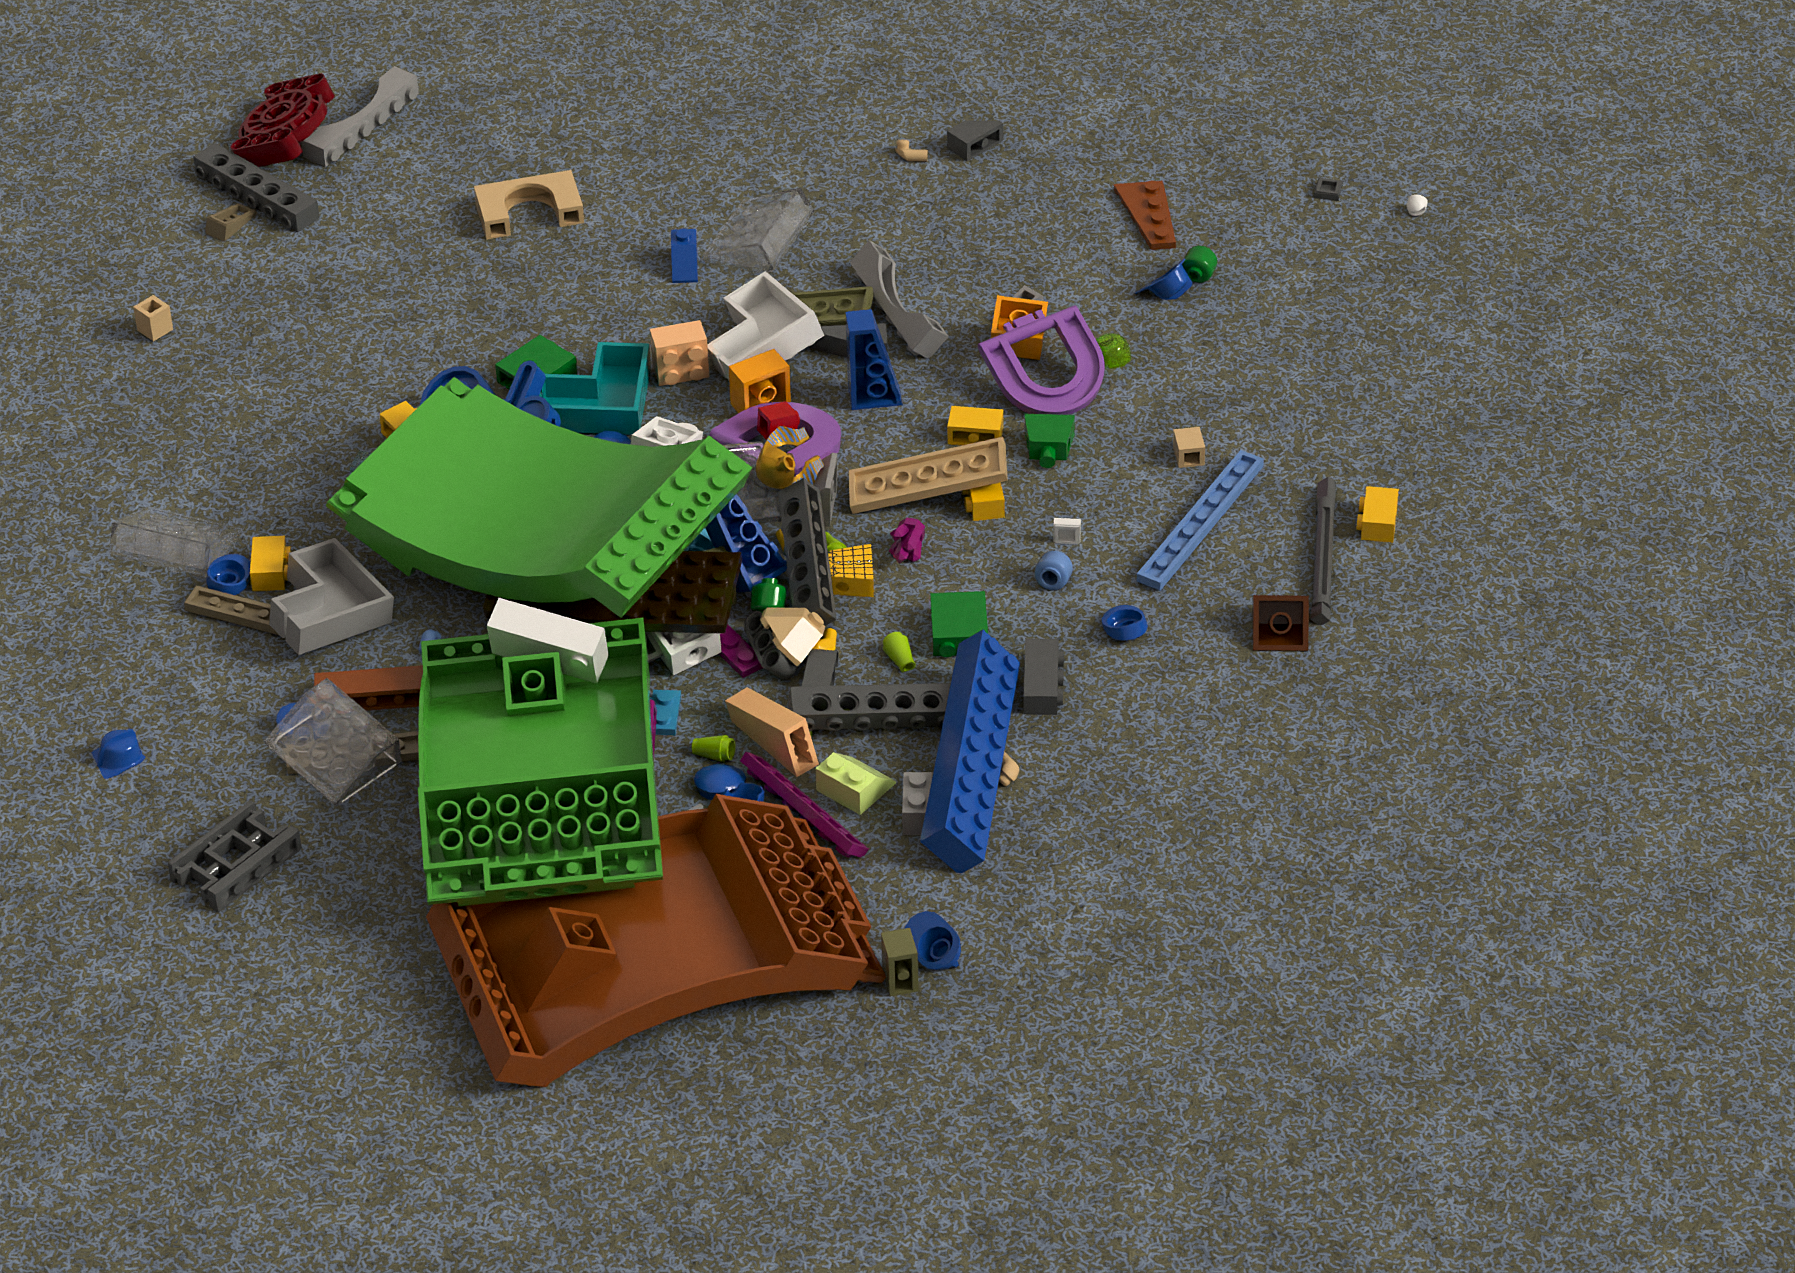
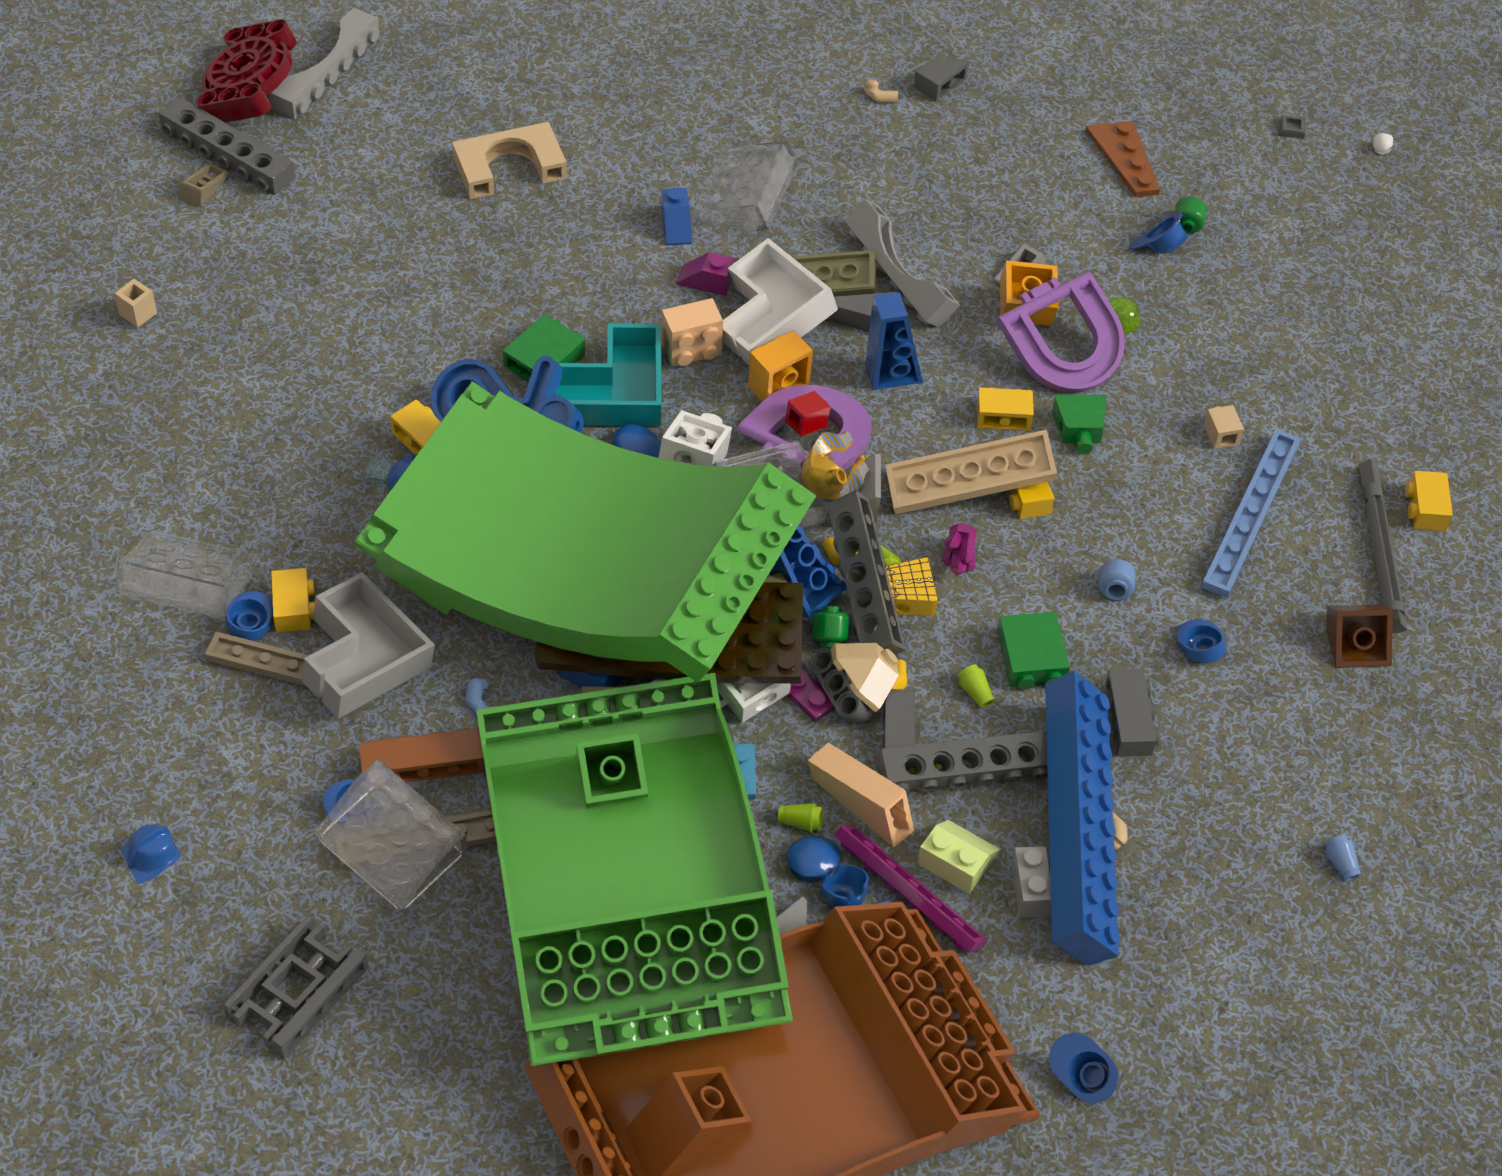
camera: 10 degrees left, 10 degrees up
(527, 631) = (618, 710): white brick -> none
(706, 306) = (708, 273): none -> magenta slope
(899, 961) = (1056, 1099): olive brick -> none
(1067, 531) = (1121, 531): white tile -> none
(1217, 795) = (1343, 857): none -> medium blue cone

